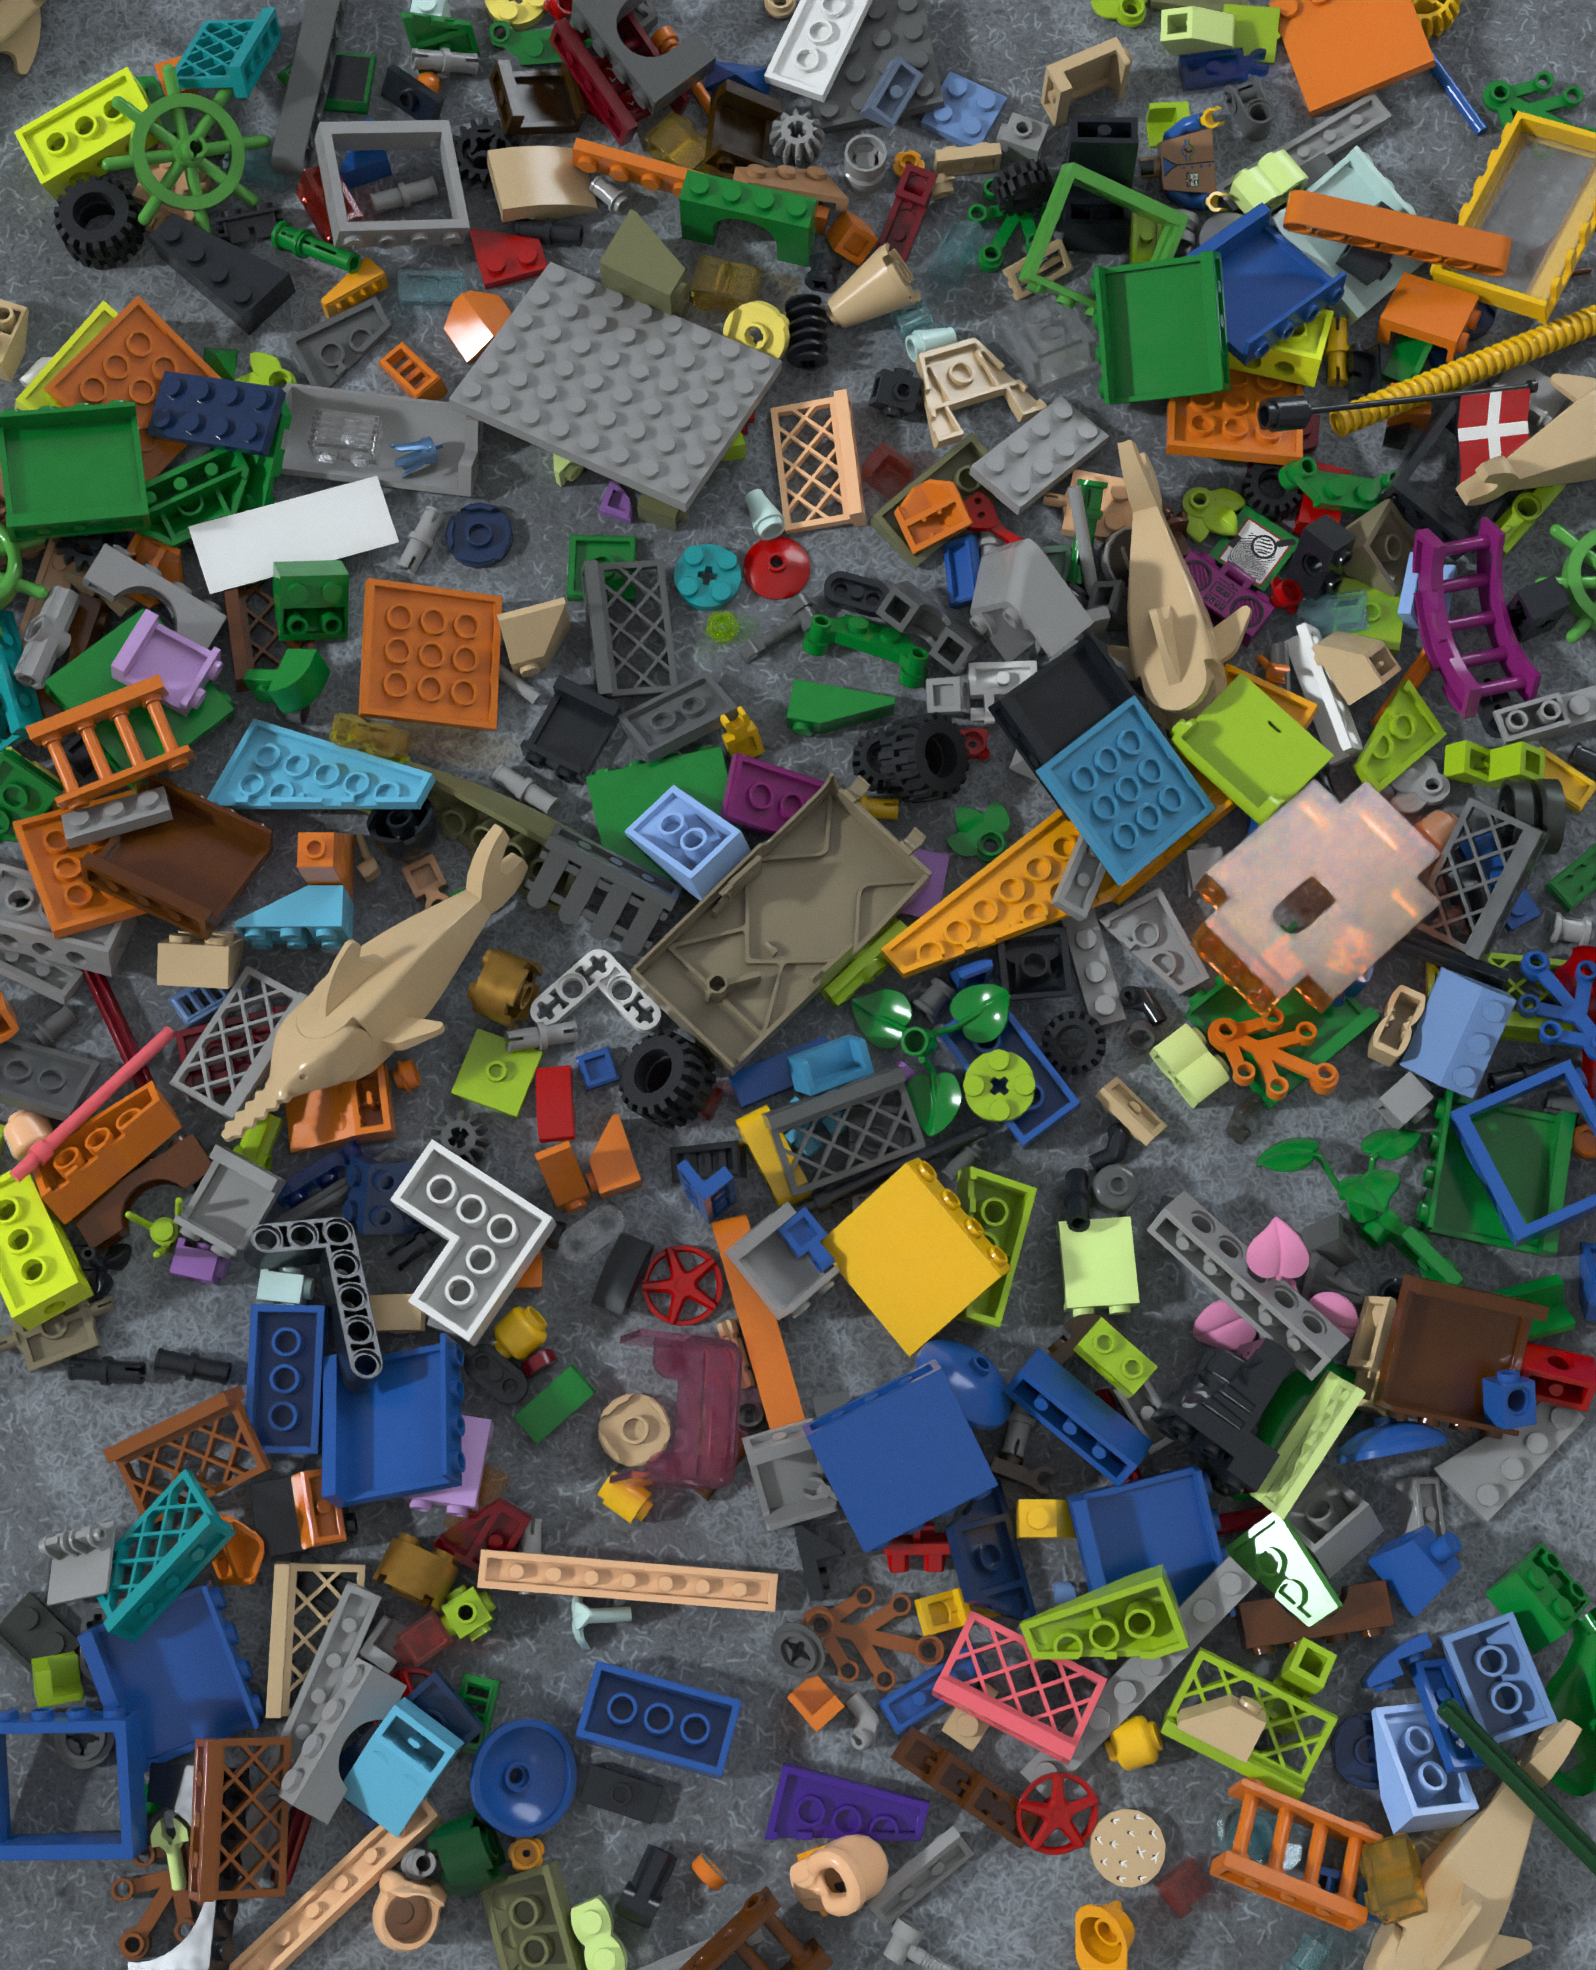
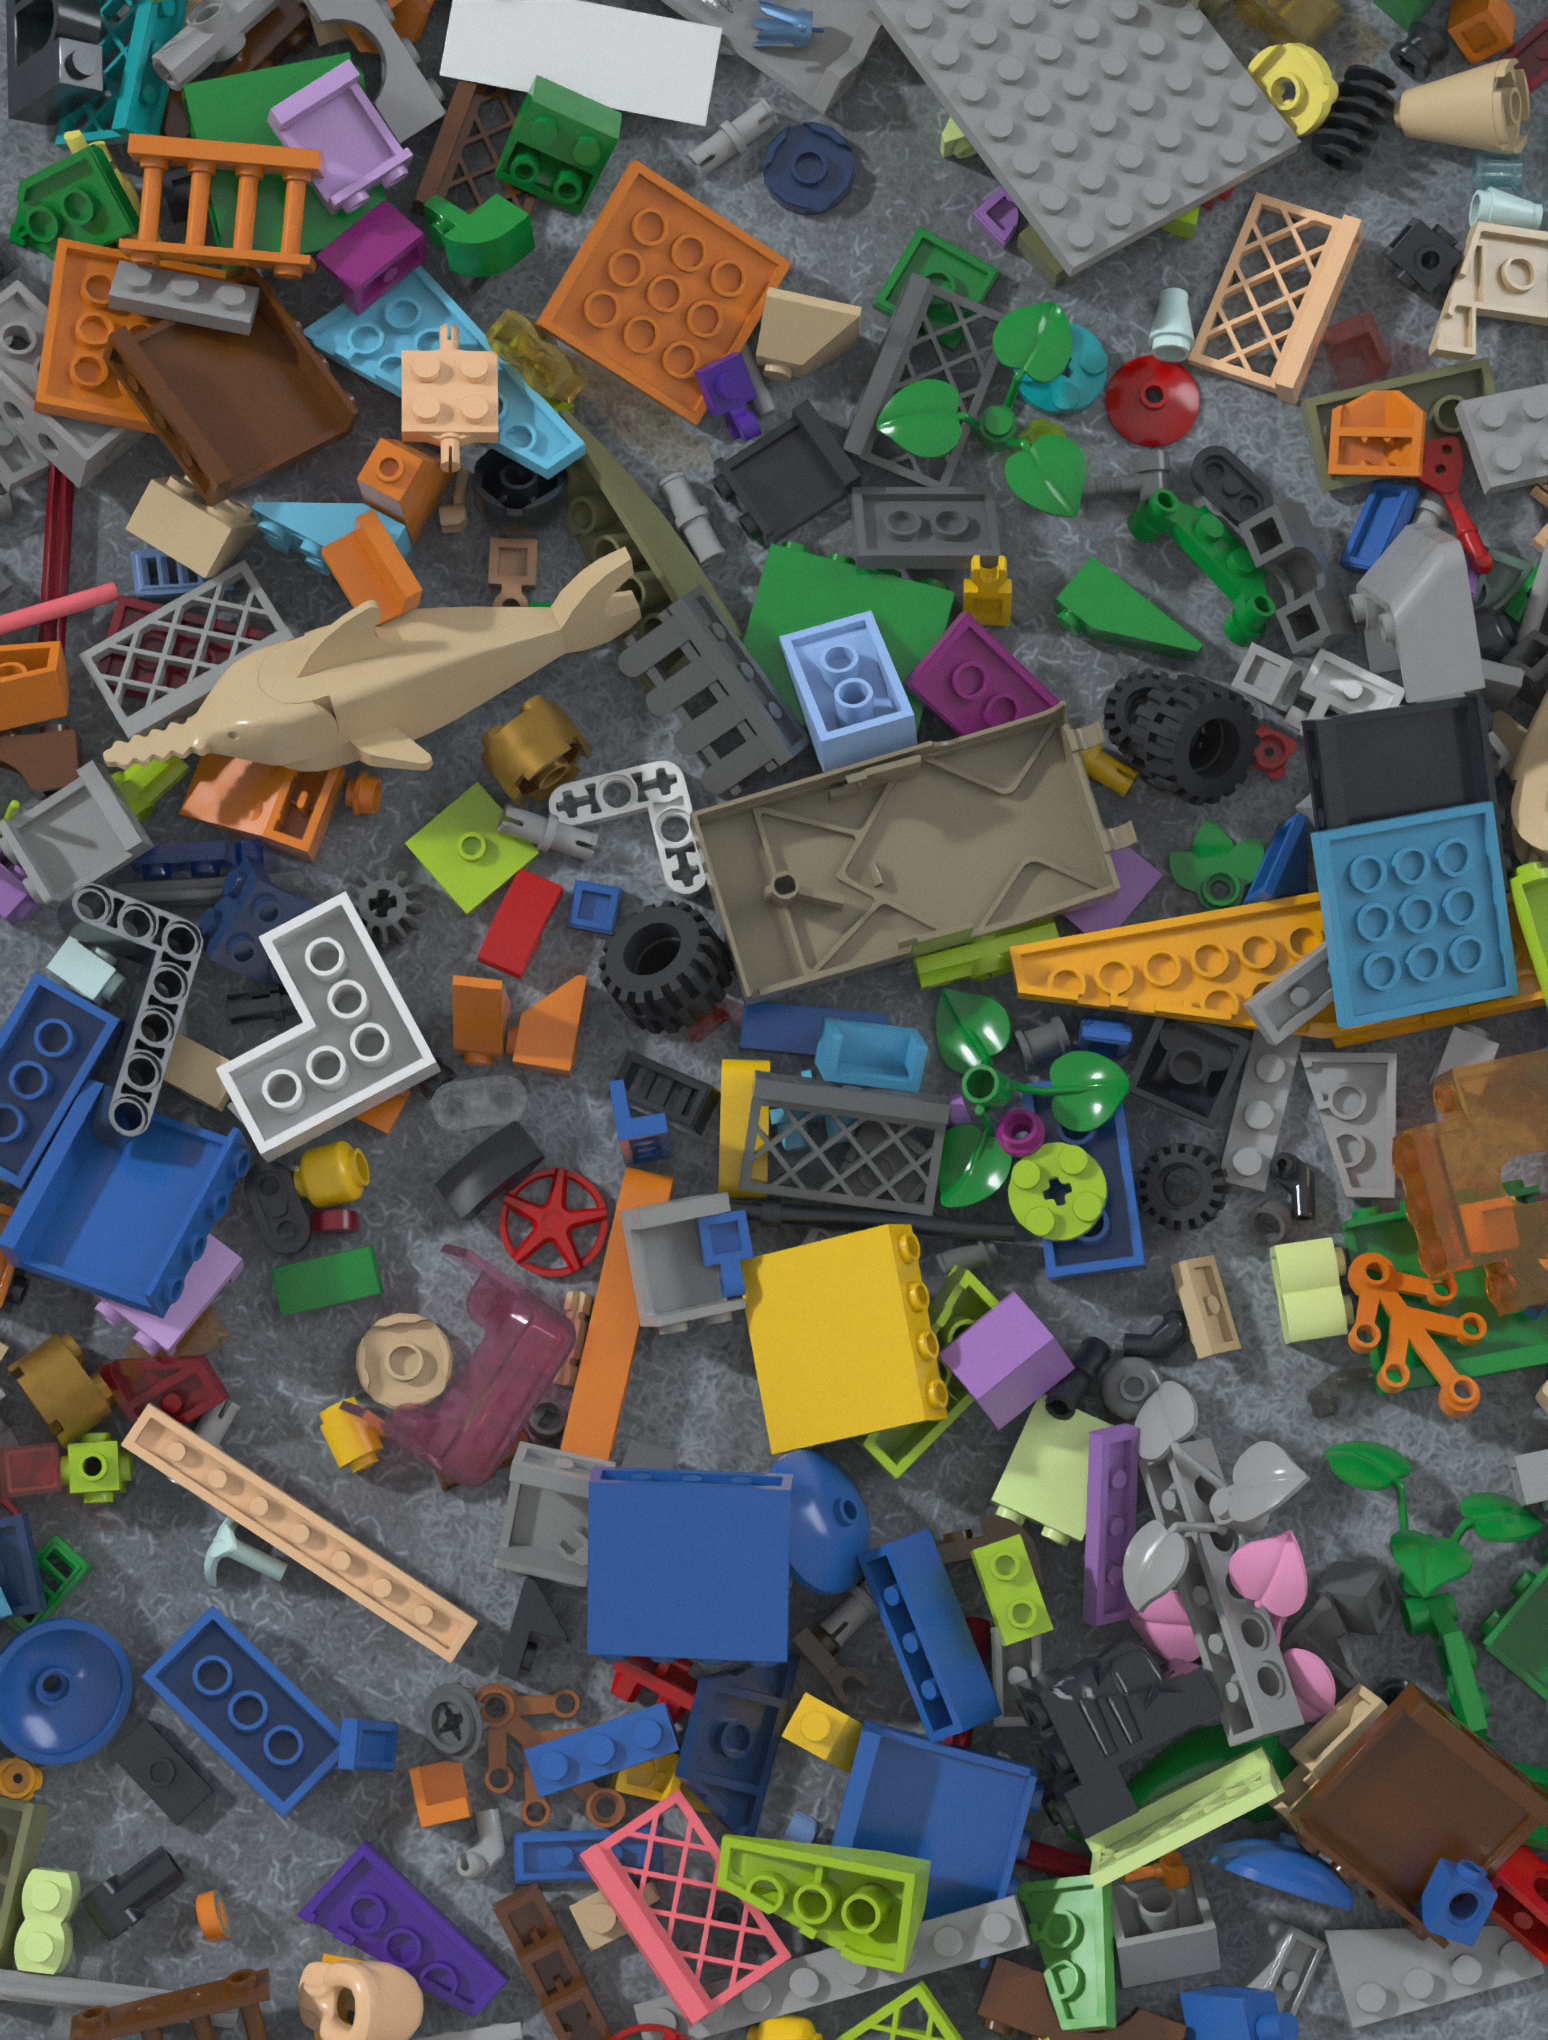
camera: 30 degrees right, 5 degrees up
(228, 728) = (374, 255): none -> magenta panel
(327, 790) = (449, 397): none -> light nougat plate
(336, 919) = (373, 569): none -> orange panel
(504, 696) = (726, 390): none -> dark purple plate
(645, 649) = (1045, 474): none -> green plant
(751, 1696) = (368, 1745): none -> blue tile
(906, 1612) = (602, 1750): none -> blue plate
(949, 1055) = (1018, 1121): none -> magenta plate
(1021, 806) = (1284, 865): none -> blue slope
(1028, 1210) = (1006, 1360): none -> medium lavender slope
(1152, 1281) = (1109, 1522): none -> medium lavender plate
(1241, 1194) = (1261, 1478): none -> light grey plant
(1317, 1486) = (1170, 1870): none -> orange hand

